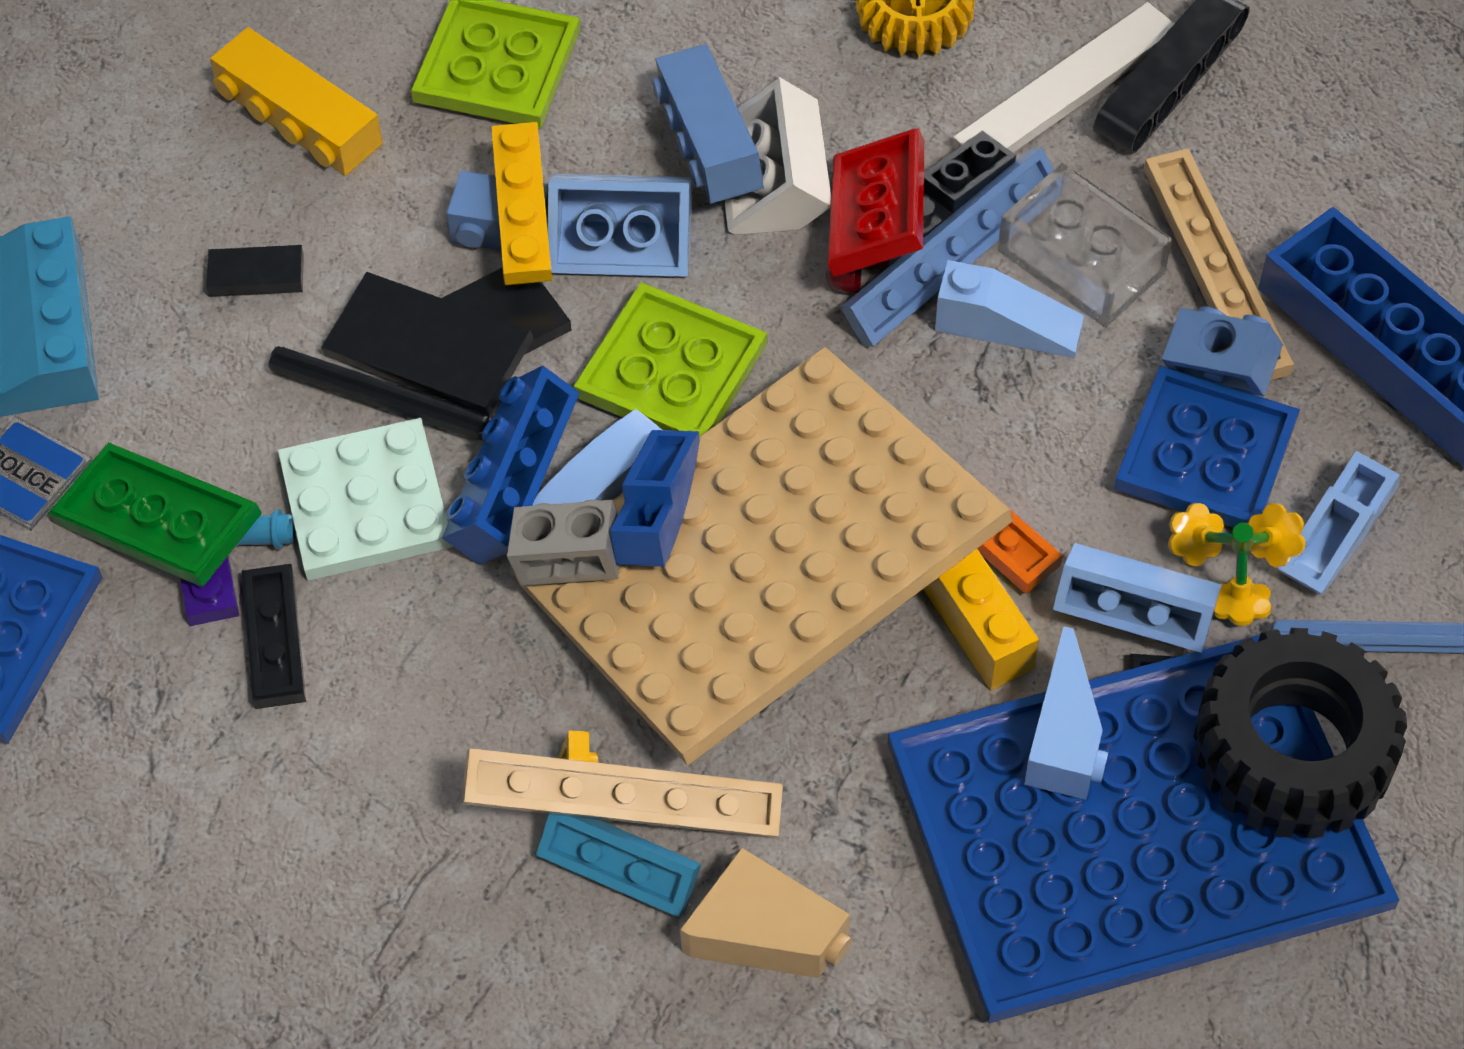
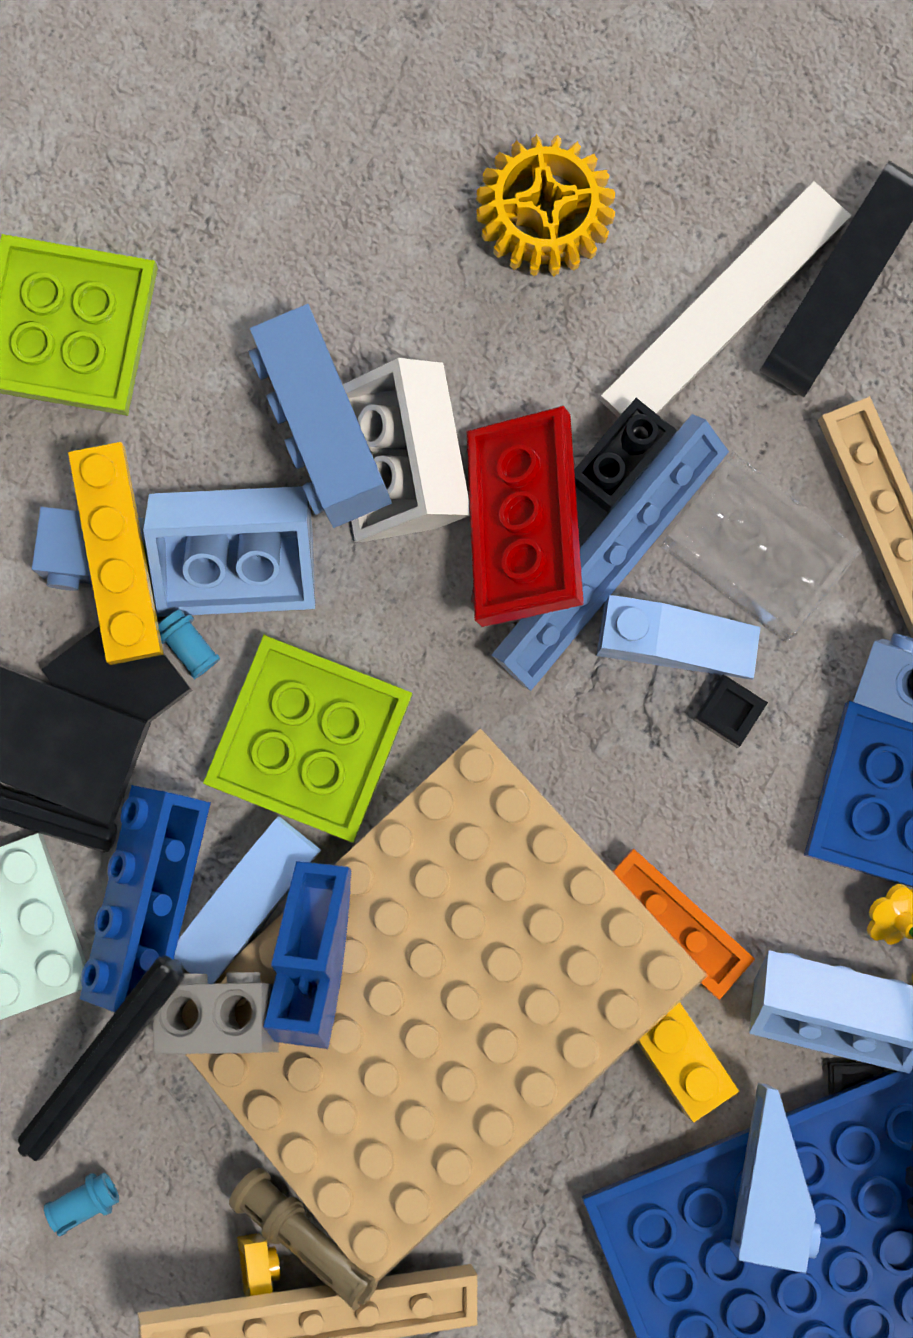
camera: 10 degrees left, 25 degrees up
(419, 708) = (82, 1203): none -> dark azure pin
(455, 569) = (101, 1057): none -> black axle
(573, 289) = (187, 643): none -> dark azure pin
(609, 724) = (285, 1223): none -> dark tan pin
(1052, 376) = (730, 711): none -> black tile

